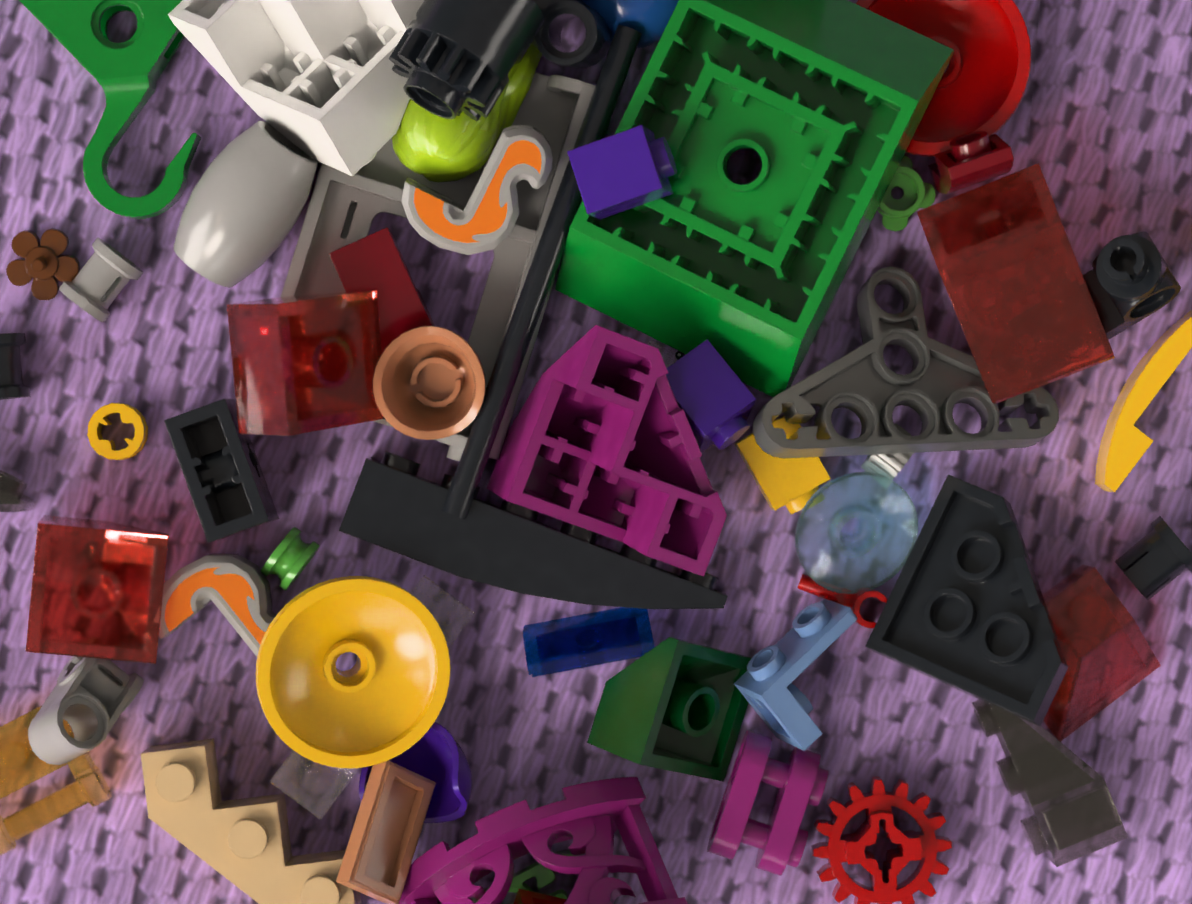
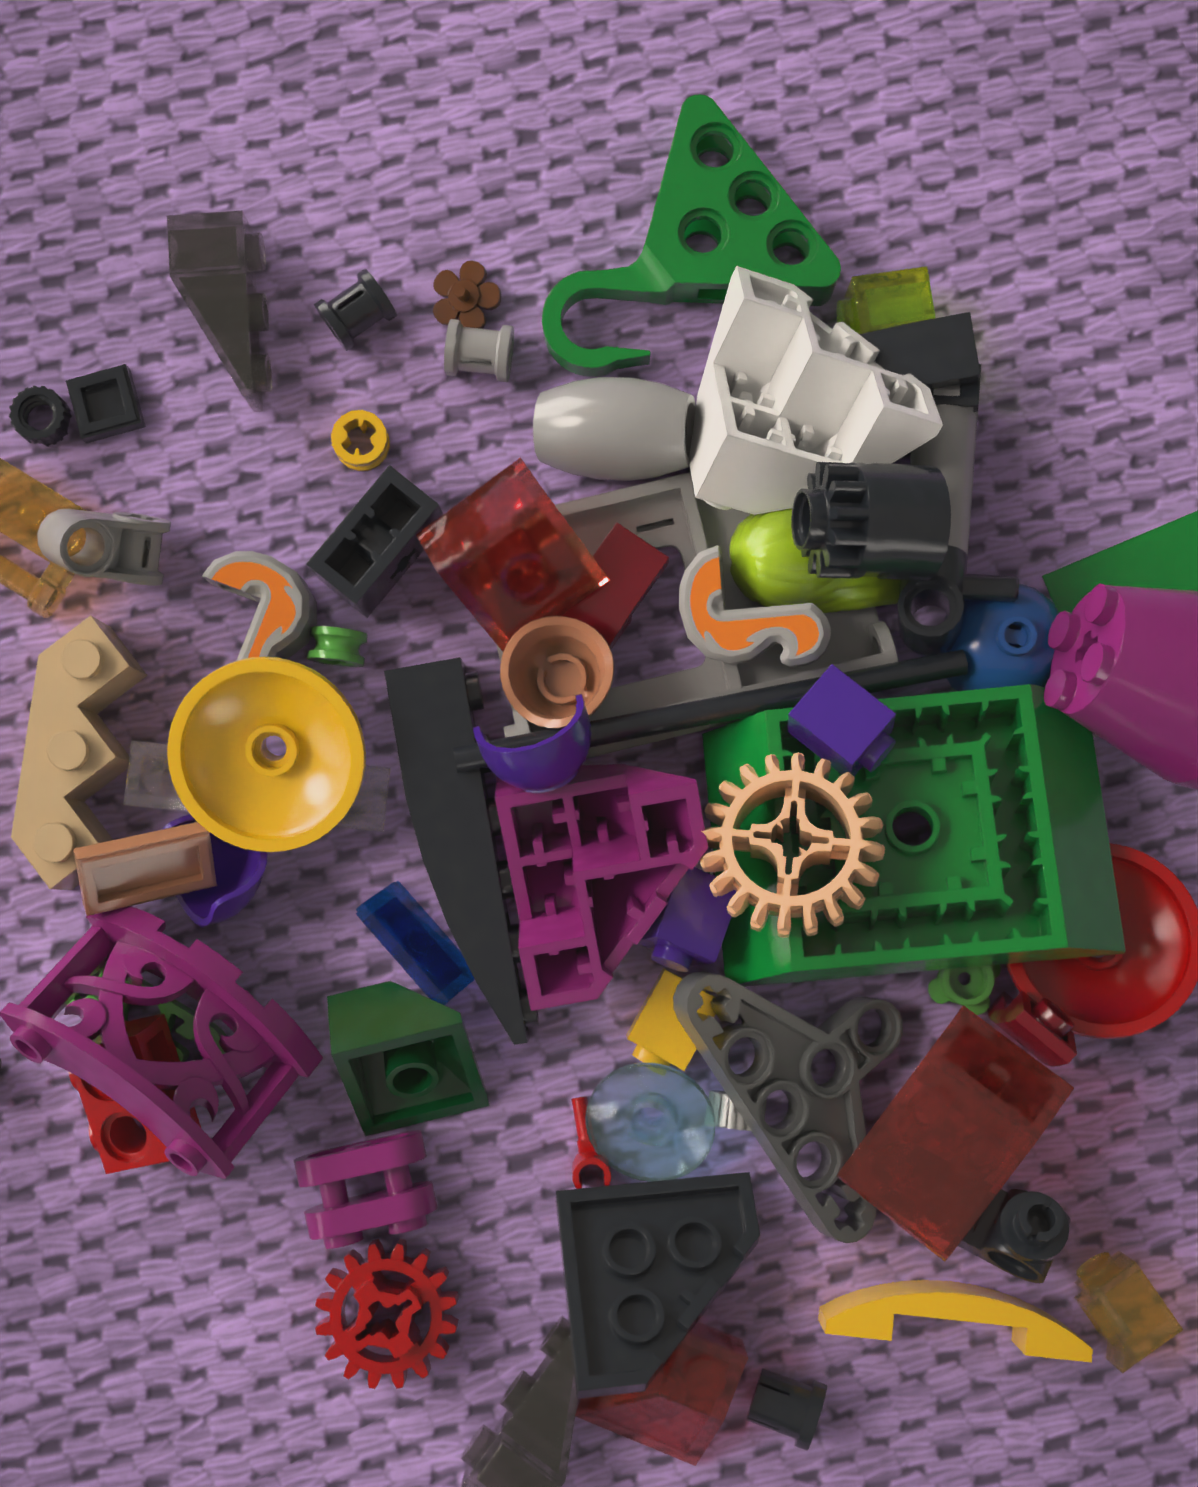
camera: 55 degrees right, 5 degrees down
(97, 590) = (210, 495): clear red slope -> none
(506, 443) = (543, 764): none -> dark purple helmet
(713, 252) = (759, 840): none -> light nougat gear
(774, 668) = (492, 1124): medium blue bracket -> none

